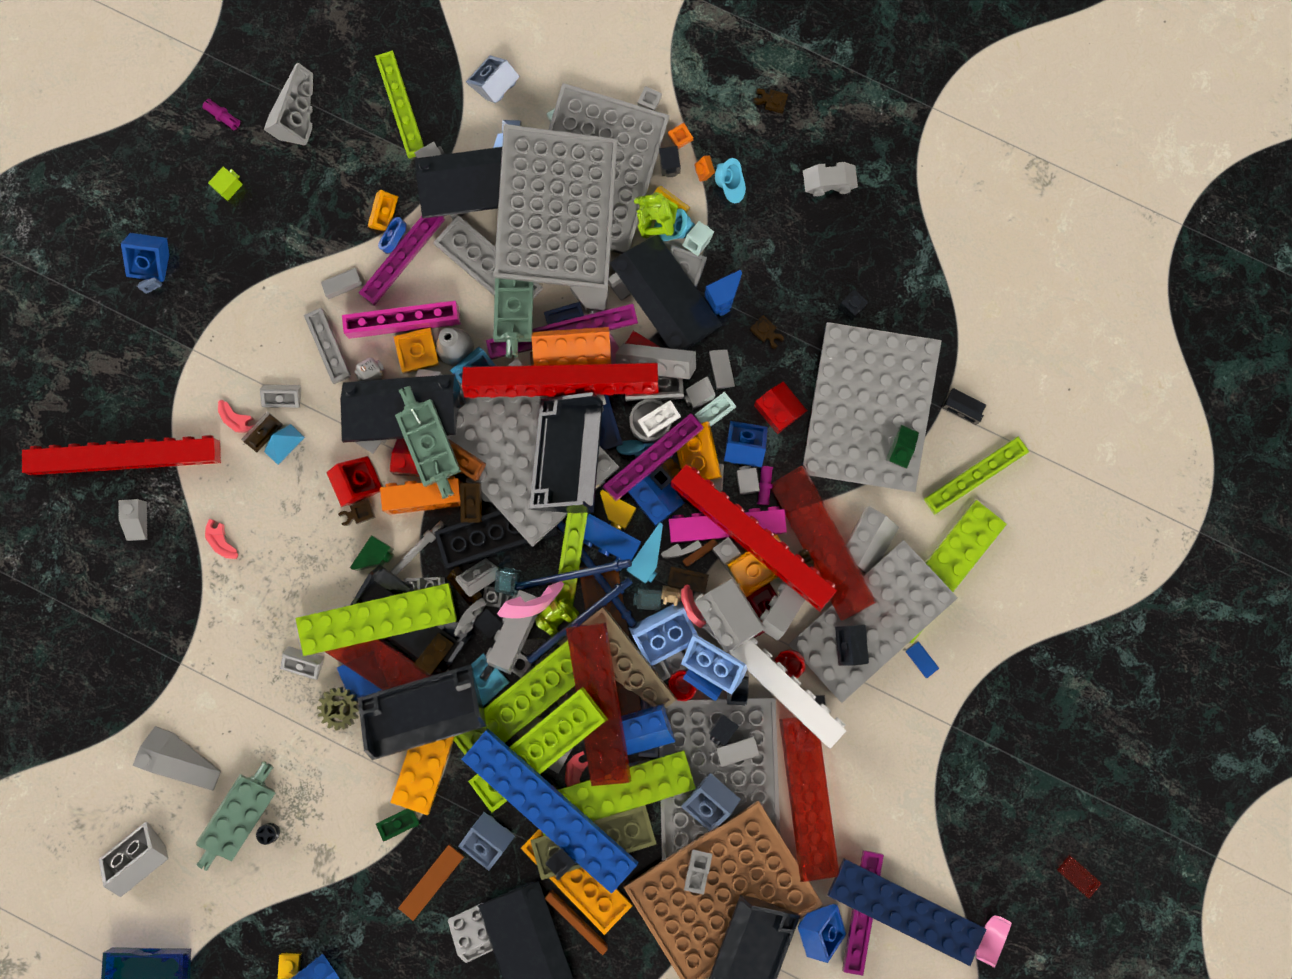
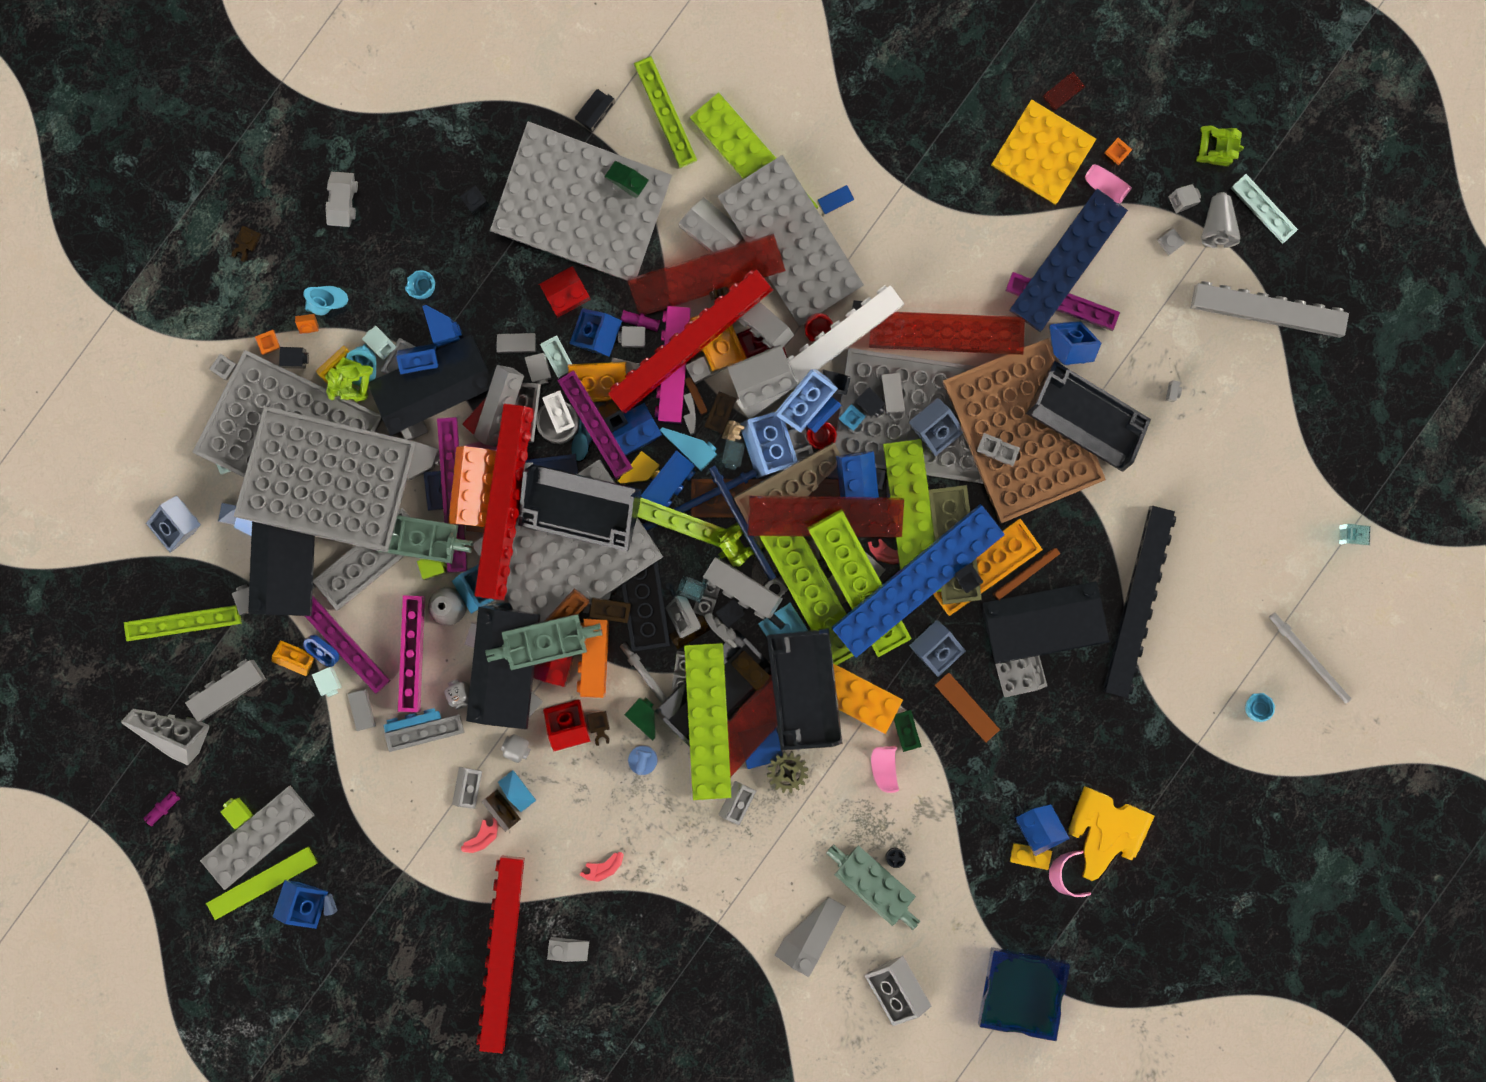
camera: 85 degrees left, 5 degrees up
(163, 218) = (261, 883): none -> lime tile
(206, 207) = (257, 837): none -> light grey plate
(324, 435) = (515, 748): none -> light grey head
(330, 561) = (642, 760): none -> medium blue piece
(337, 331) = (411, 720): none -> dark azure plate
(341, 153) = (225, 690): none -> light grey brick
(354, 807) = (884, 768): none -> bright pink piece
(363, 245) = (327, 682): none -> light aqua brick
(416, 350) = (444, 644): light orange plate -> none
(486, 323) = (431, 568): none -> lime brick
(519, 609) = (722, 576): bright pink slope -> none
(616, 565) = (696, 476): dark blue bar -> none
(688, 275) = (417, 358): none -> blue panel
(690, 607) = (749, 413): coral piece -> none
(705, 714) = (852, 417): none -> dark azure plate
(761, 268) = (420, 284): none -> medium azure hair
(765, 330) = (484, 293): dark brown plate -> none
(852, 645) = (810, 264): black panel -> none
(1012, 866) = (1043, 152): none -> yellow plate
(1029, 945) = (1118, 151): none -> orange plate

